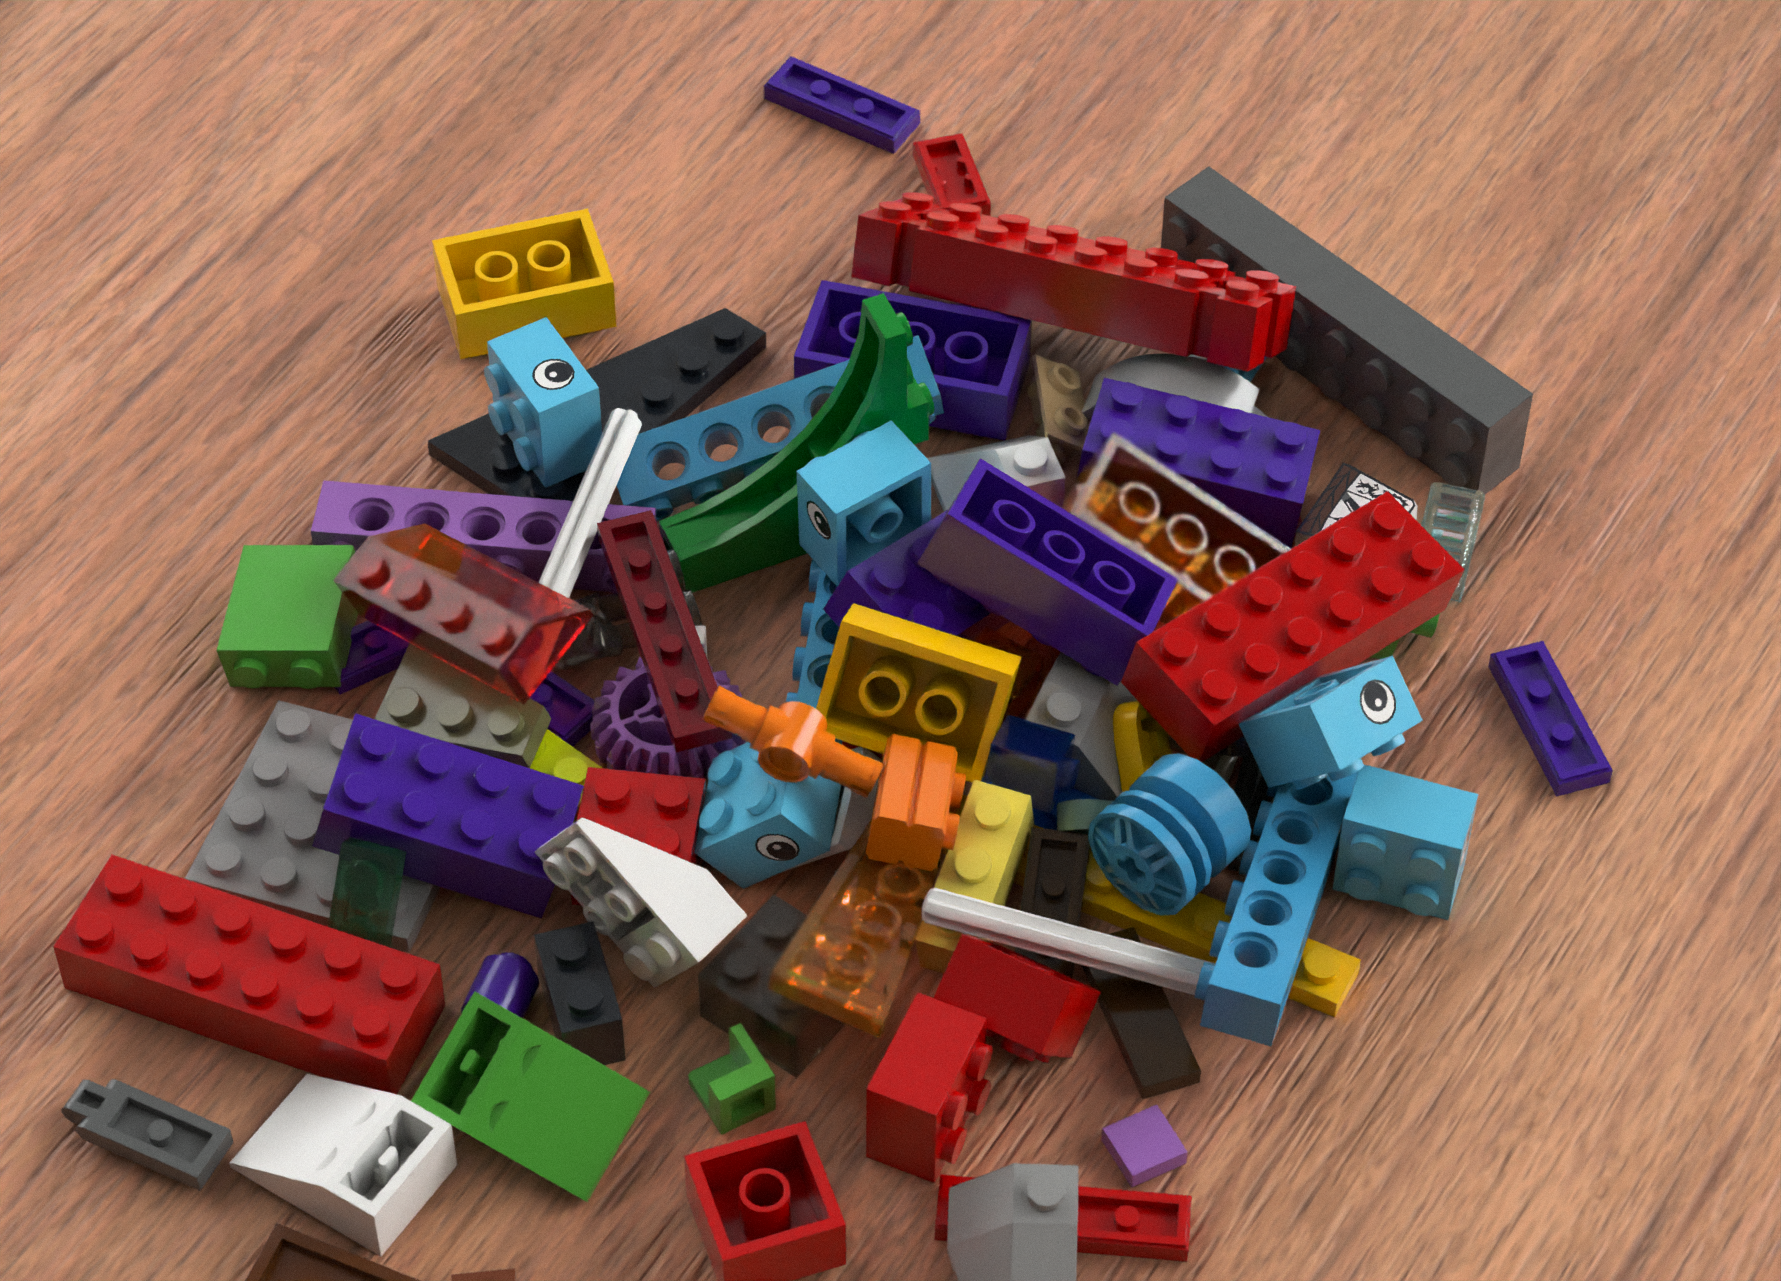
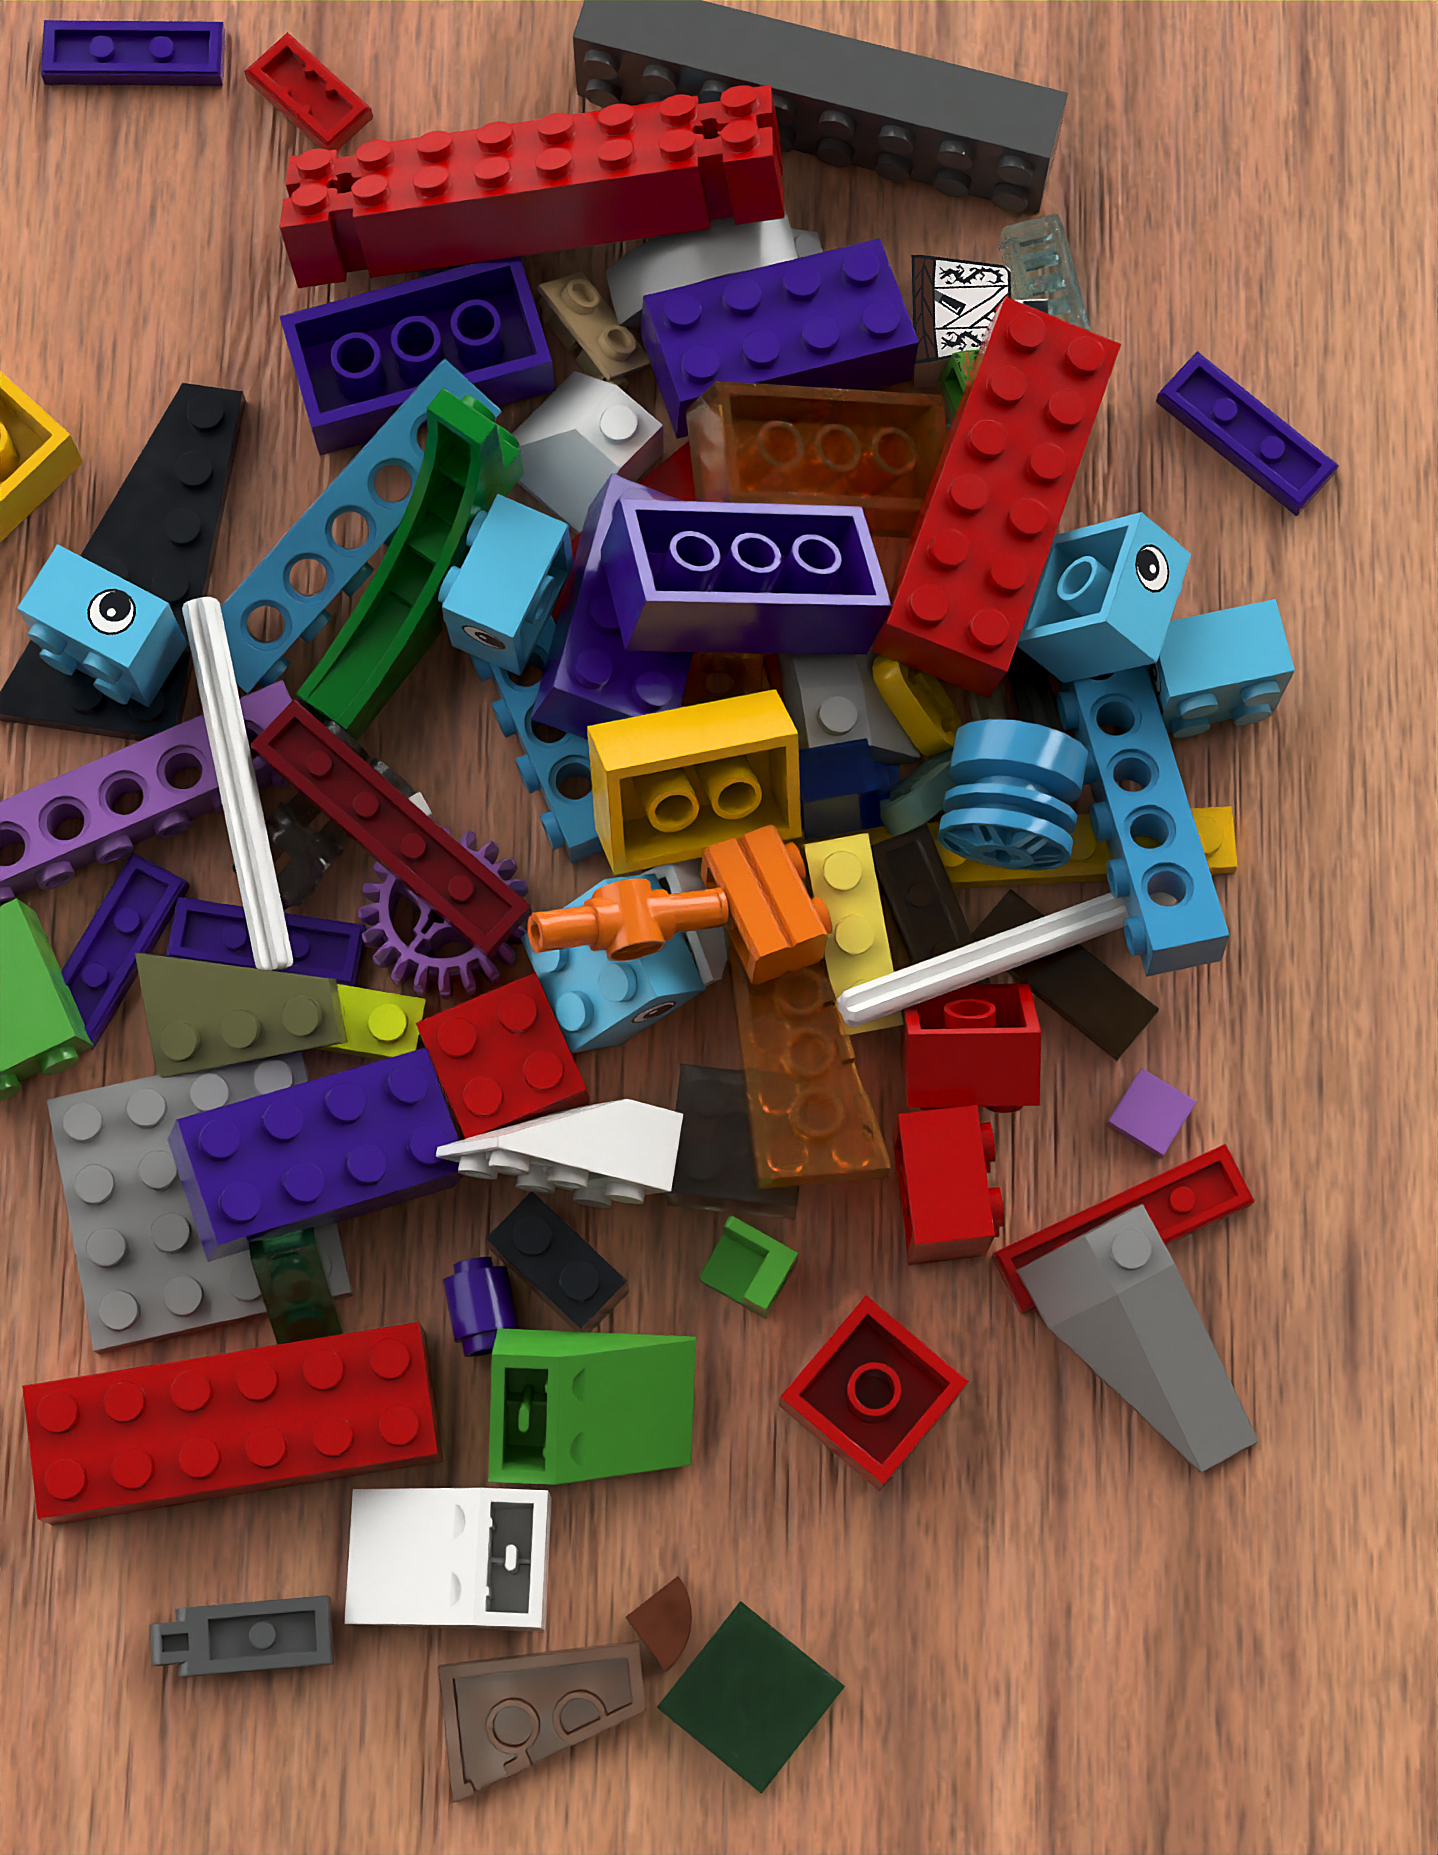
camera: 30 degrees left, 25 degrees up
(462, 607) = (180, 912): clear red slope -> none

